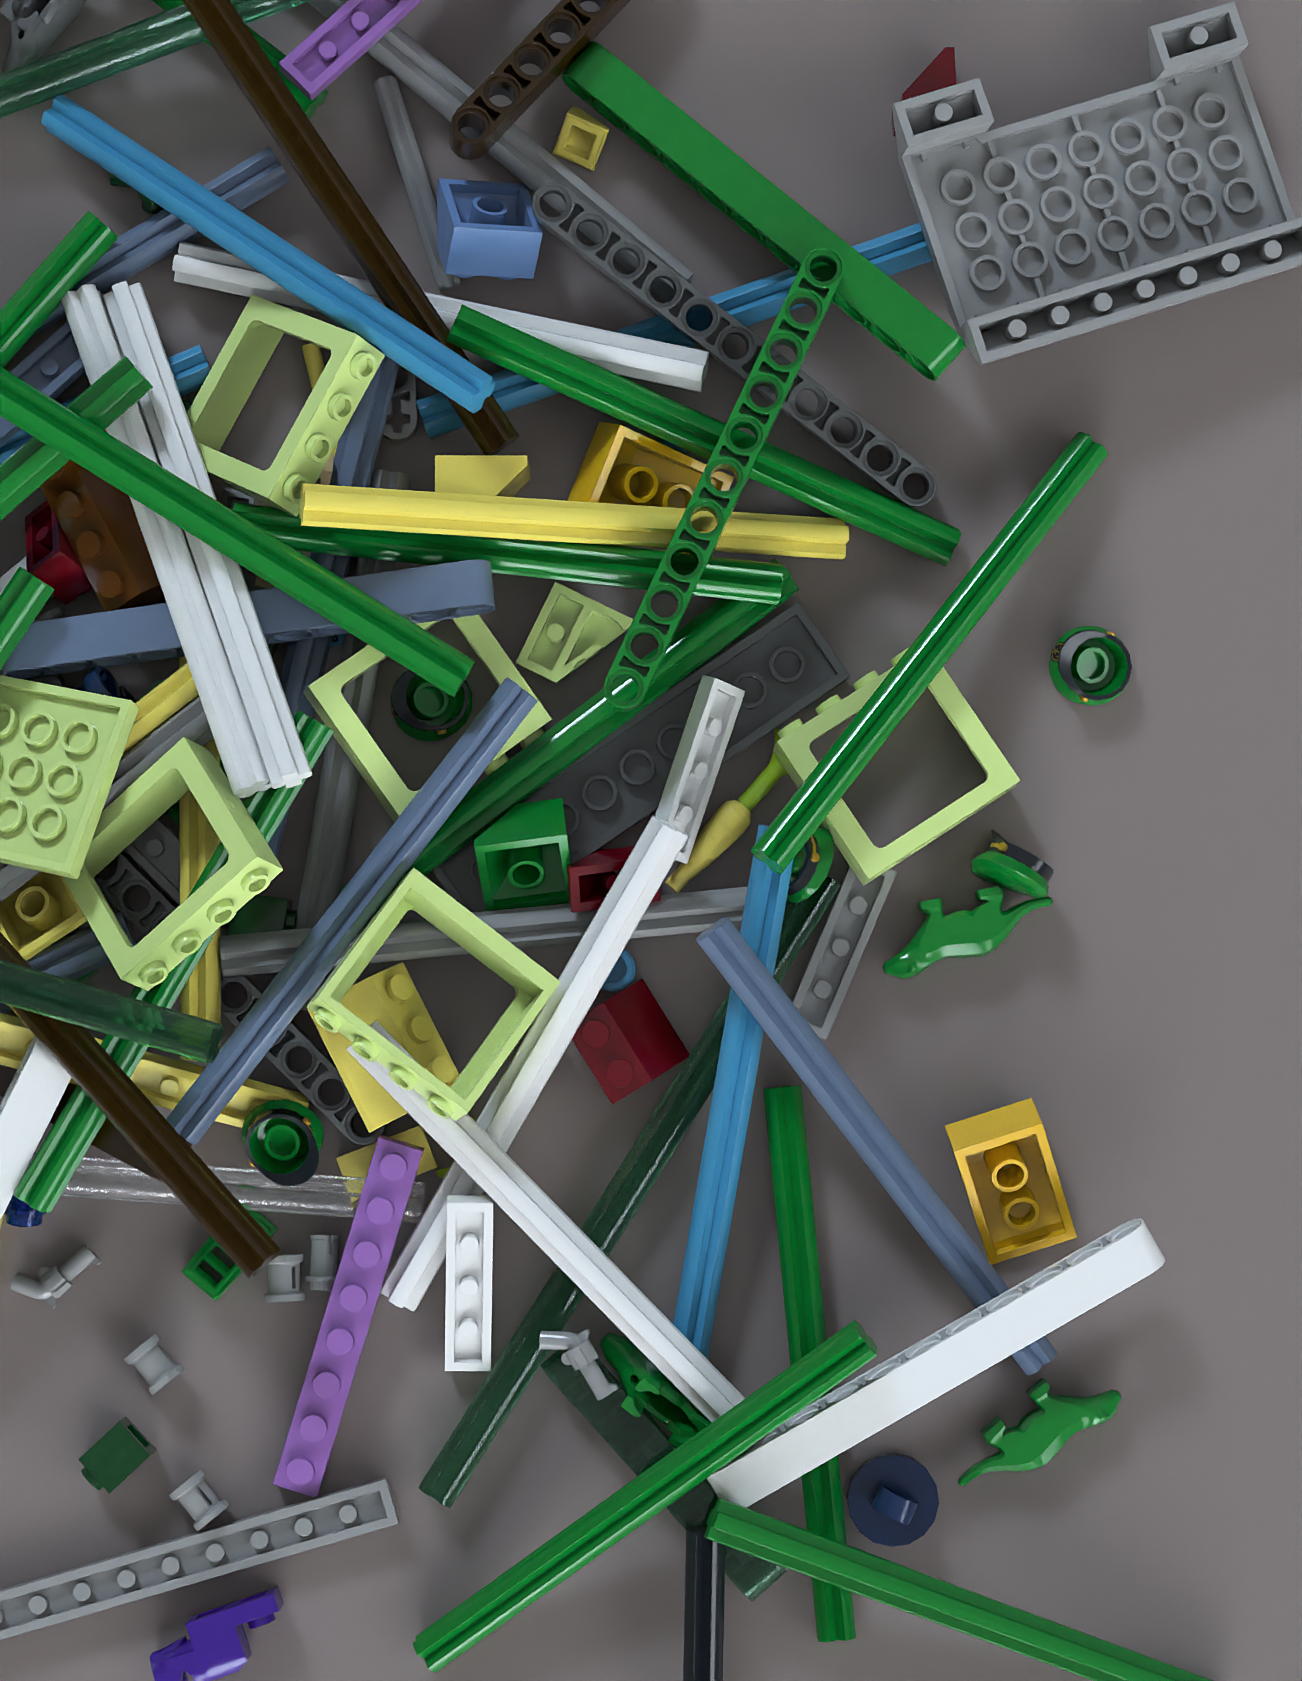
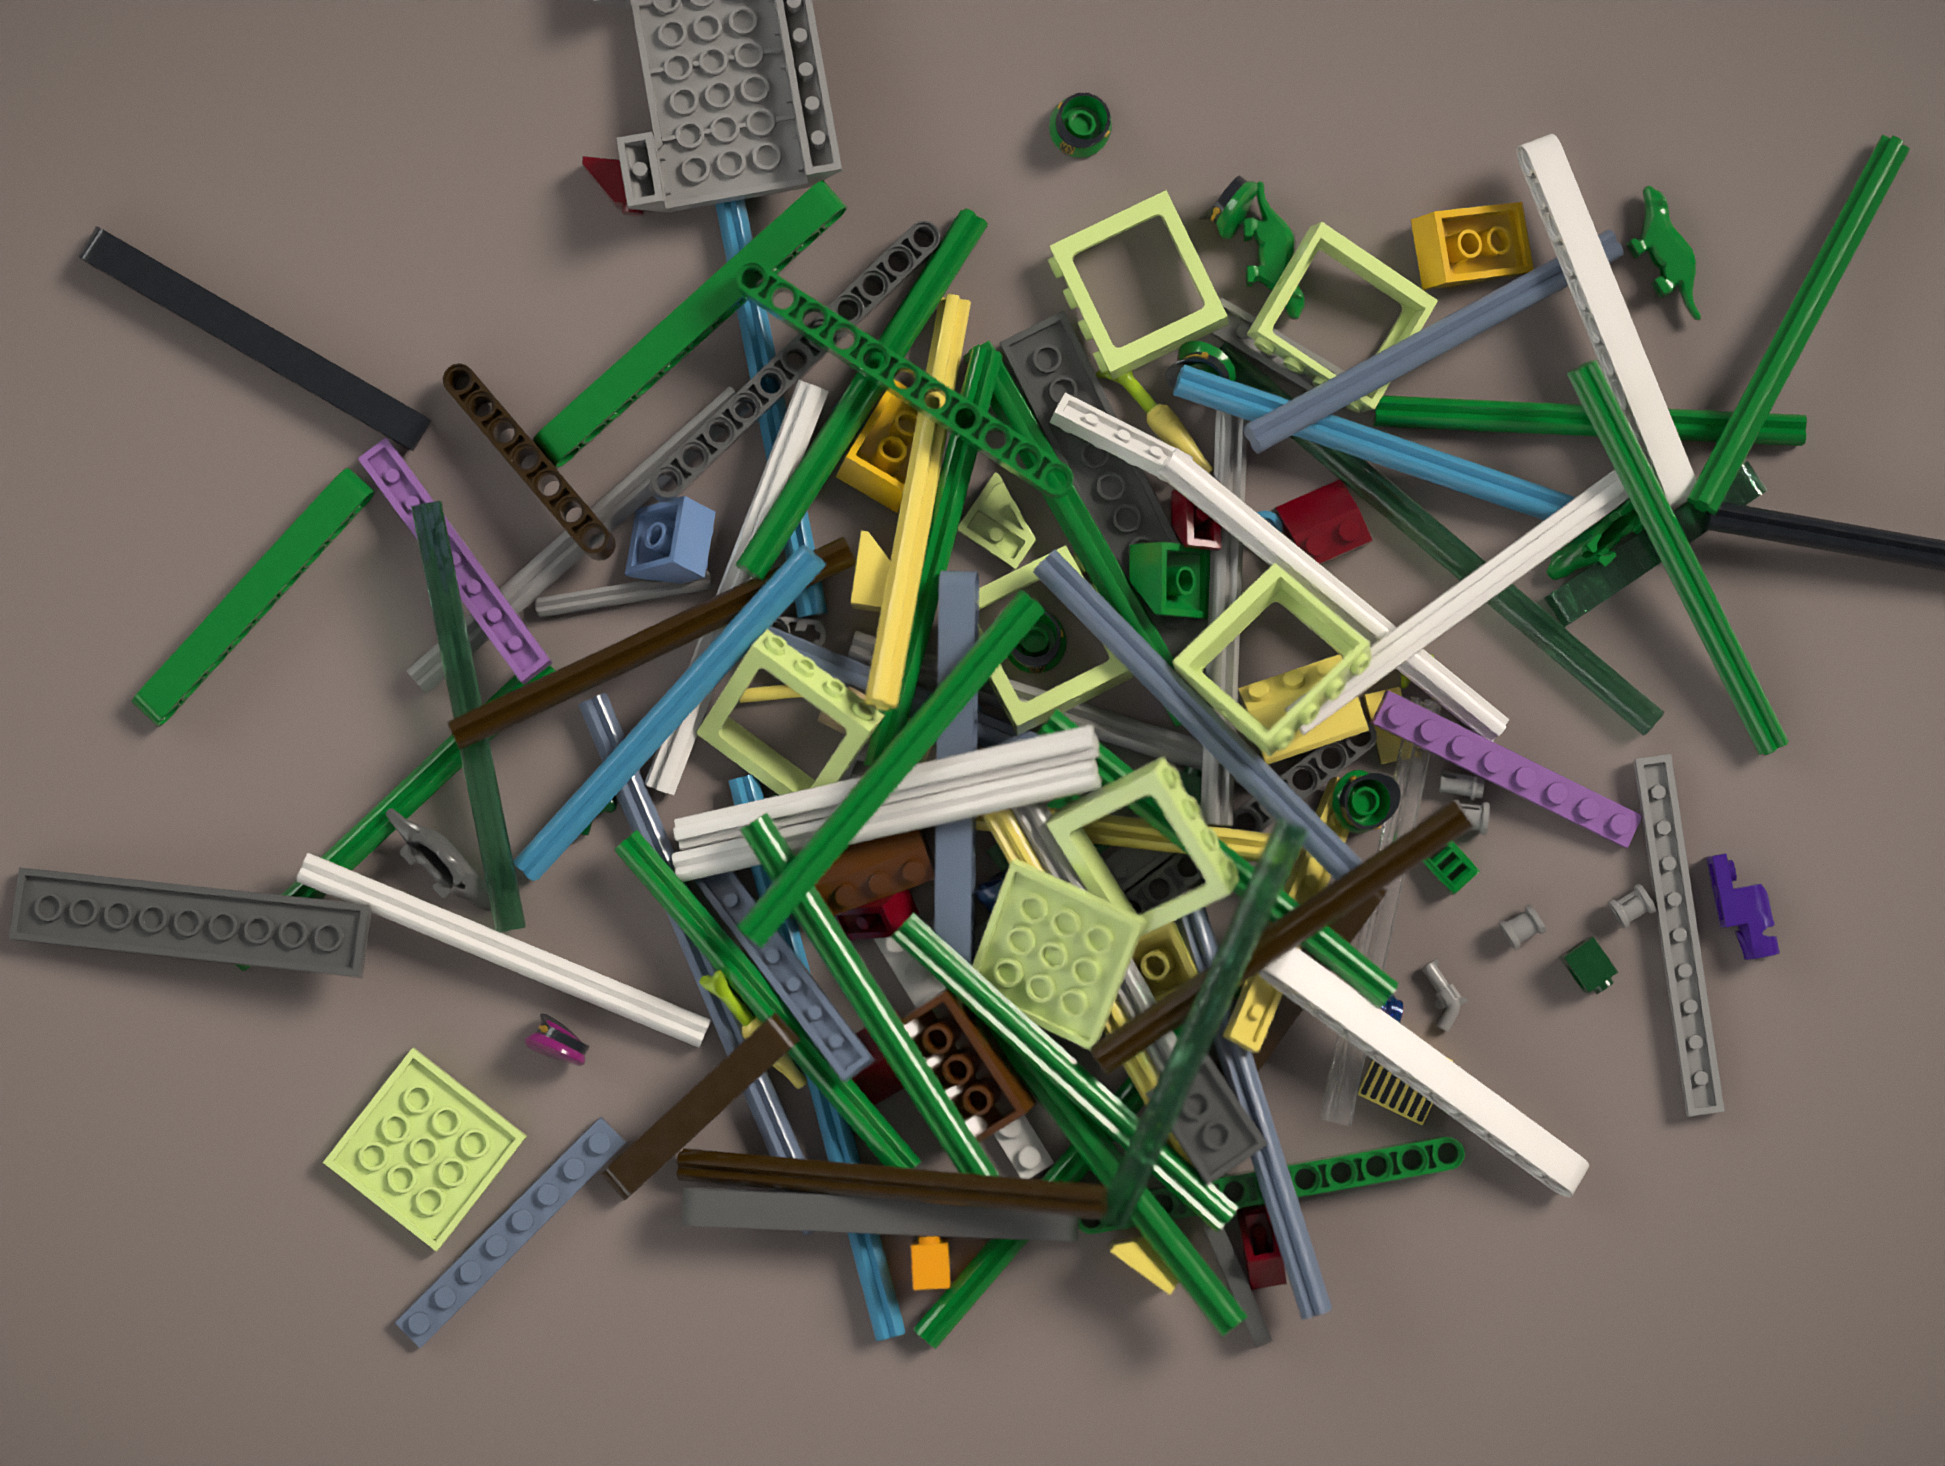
camera: 85 degrees left, 0 degrees up
(468, 1282) = (1494, 671): white plate -> none
(581, 138) = (607, 459): light yellow slope -> none
(581, 1356) = (1562, 592): light grey piece -> none
(892, 1499) = (1703, 372): dark blue tile -> none
(914, 1120) = (1320, 237): none -> yellowish green piece
(928, 653) = (1058, 243): green axle -> none

